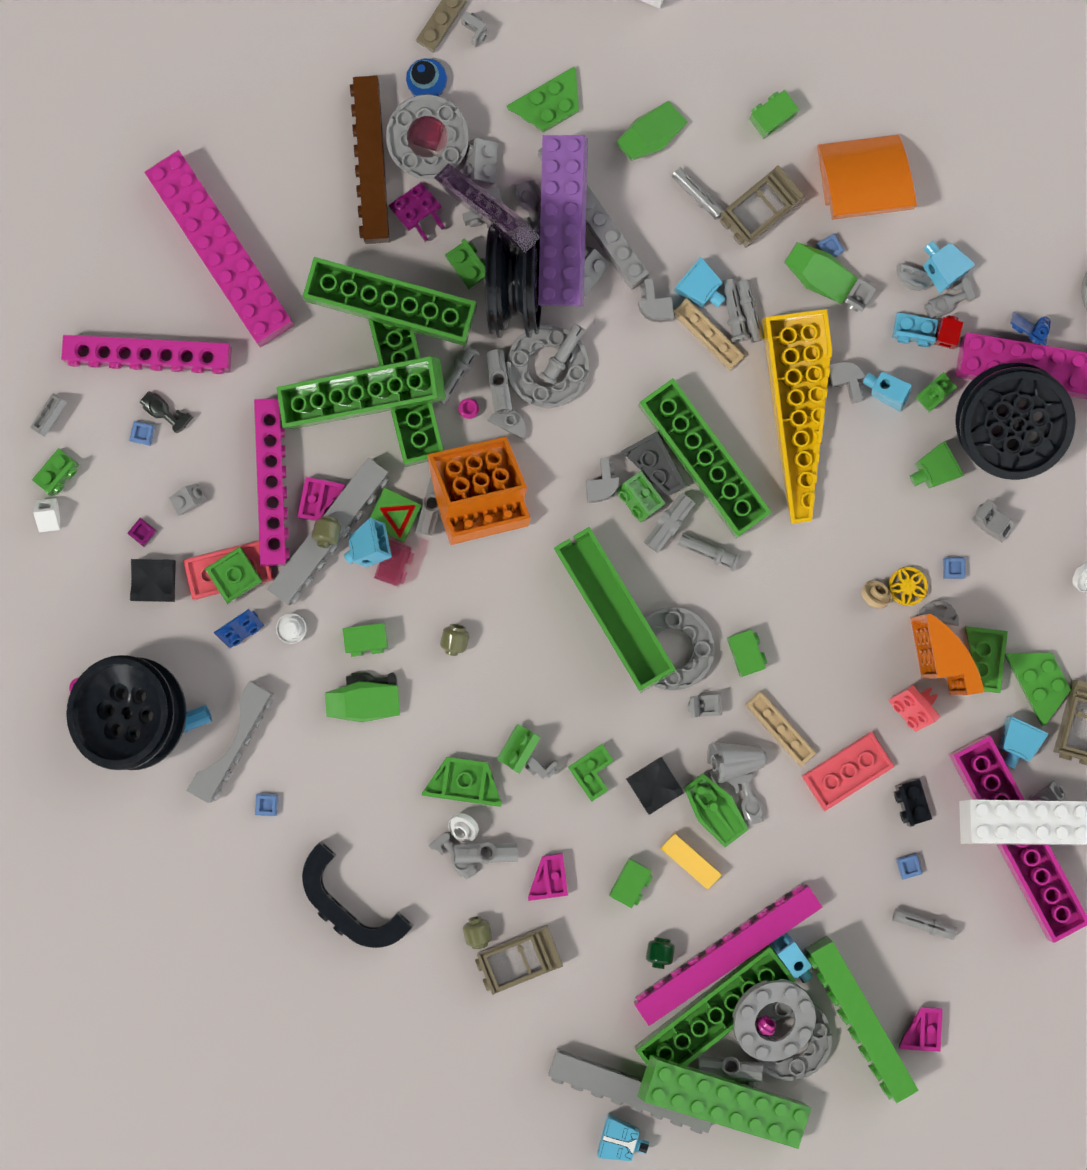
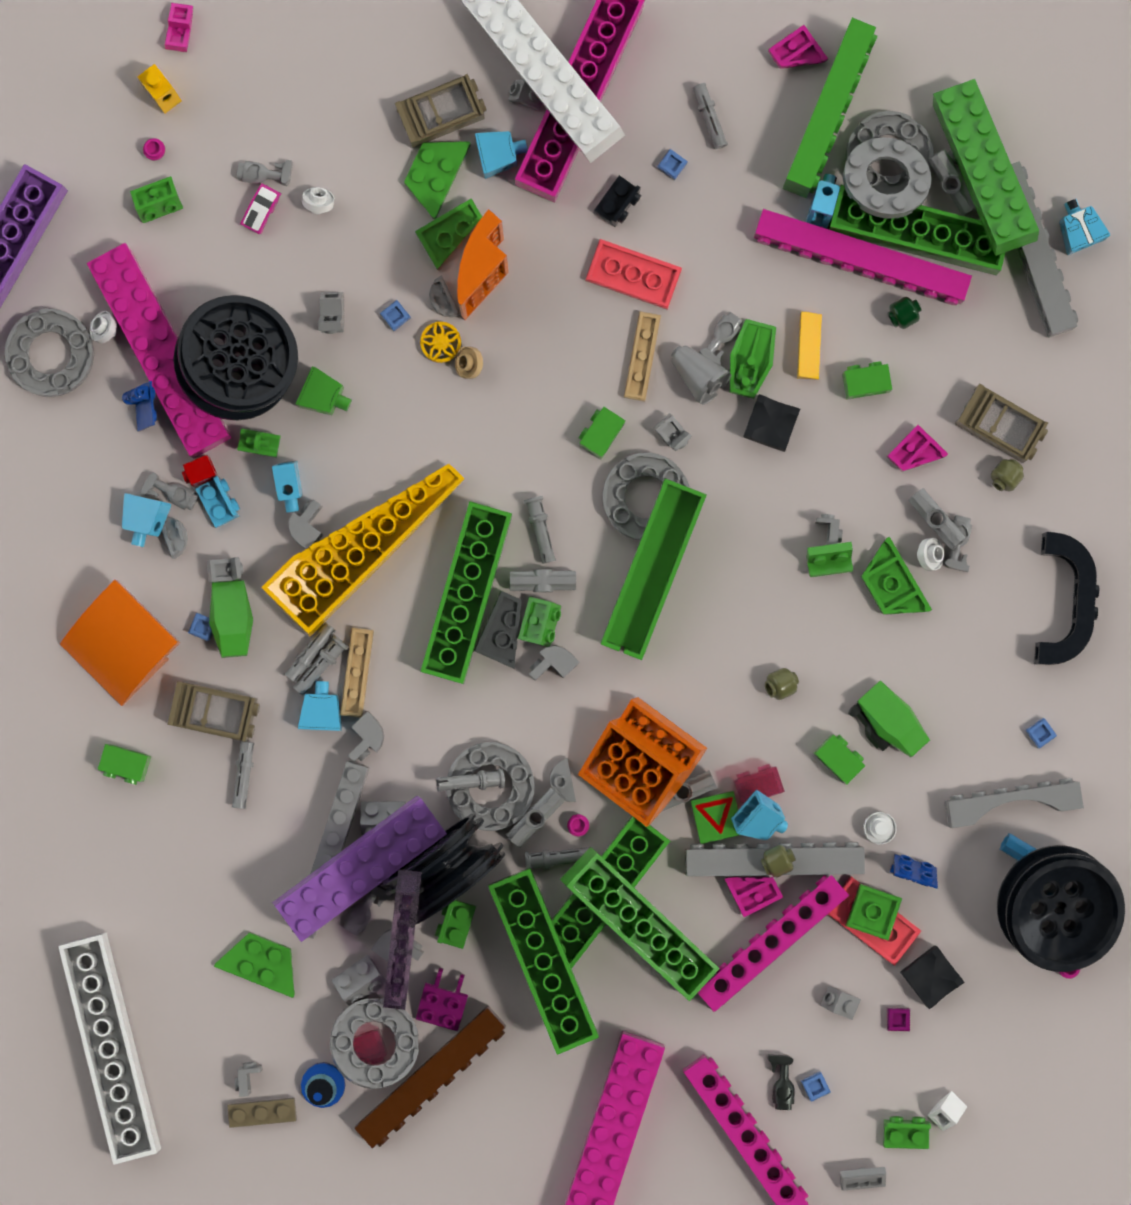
camera: 130 degrees left, 0 degrees up
(586, 771) = (803, 489): bright green plate -> none
(651, 131) = (220, 855): bright green piece -> none
(765, 1025) = (896, 181): dark pink plate -> none
(915, 707) = (538, 258): coral plate -> none

